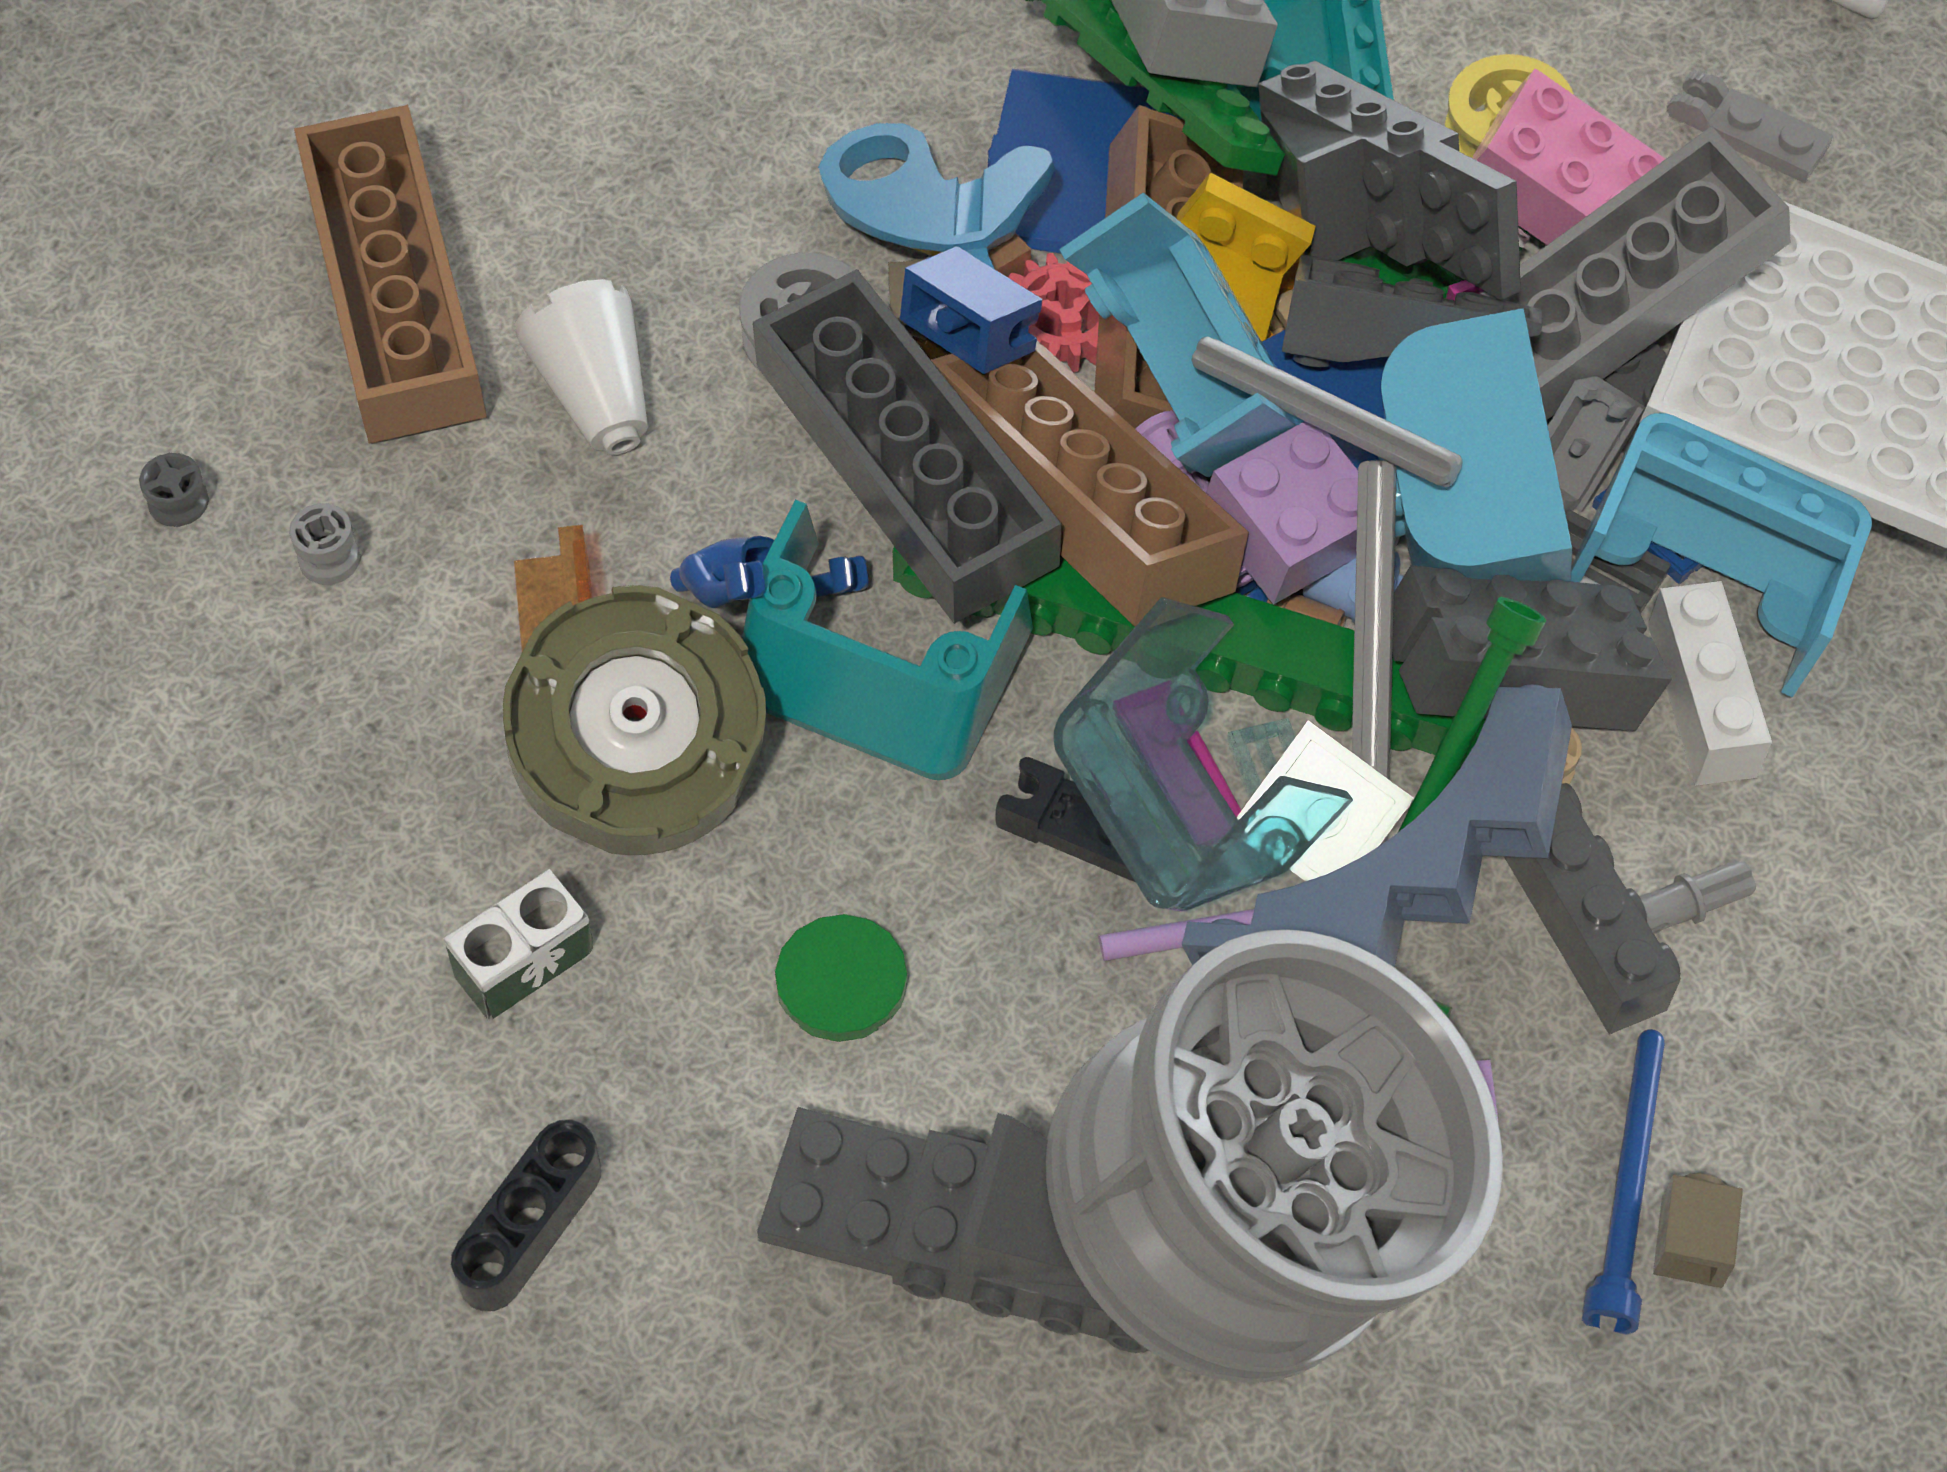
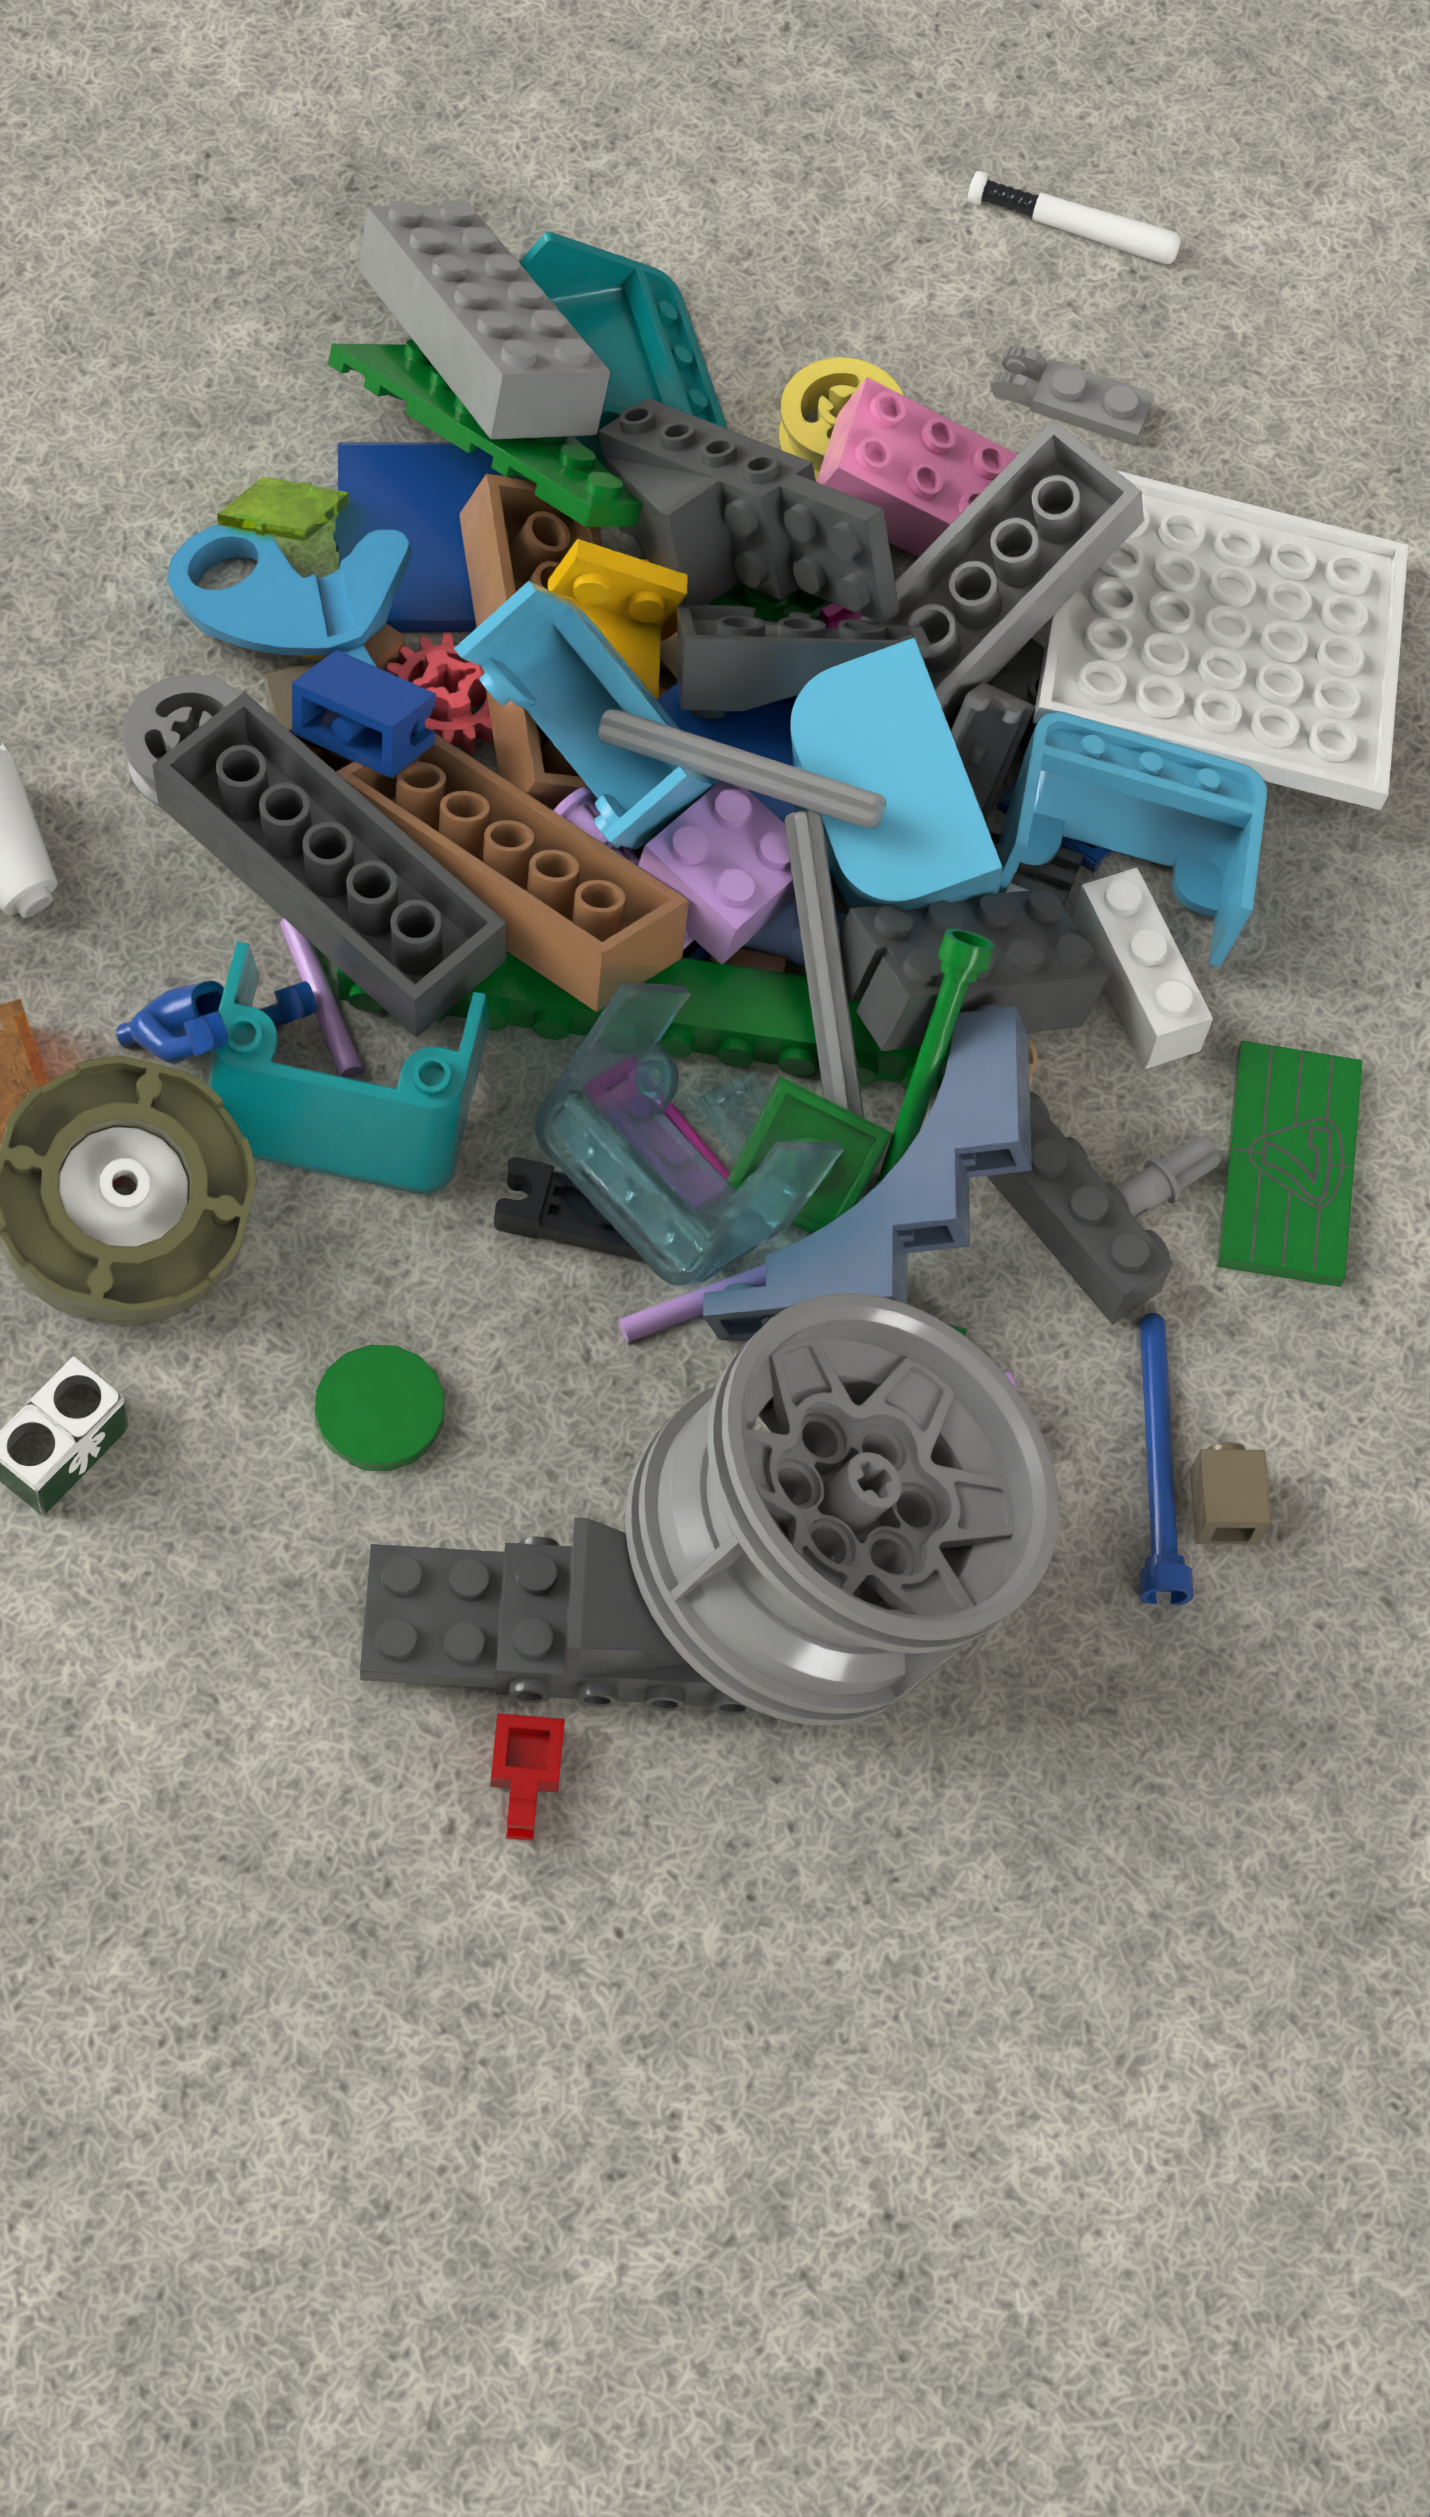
camera: 20 degrees left, 5 degrees up
(528, 1185) = (127, 1670): black beam -> none
(879, 585) = (328, 1011): none -> lavender bar
(905, 1357) = (526, 1761): none -> red plate
(944, 118) = (283, 508): none -> clear neon green piece
(1830, 906) = (1290, 1164): none -> green tile

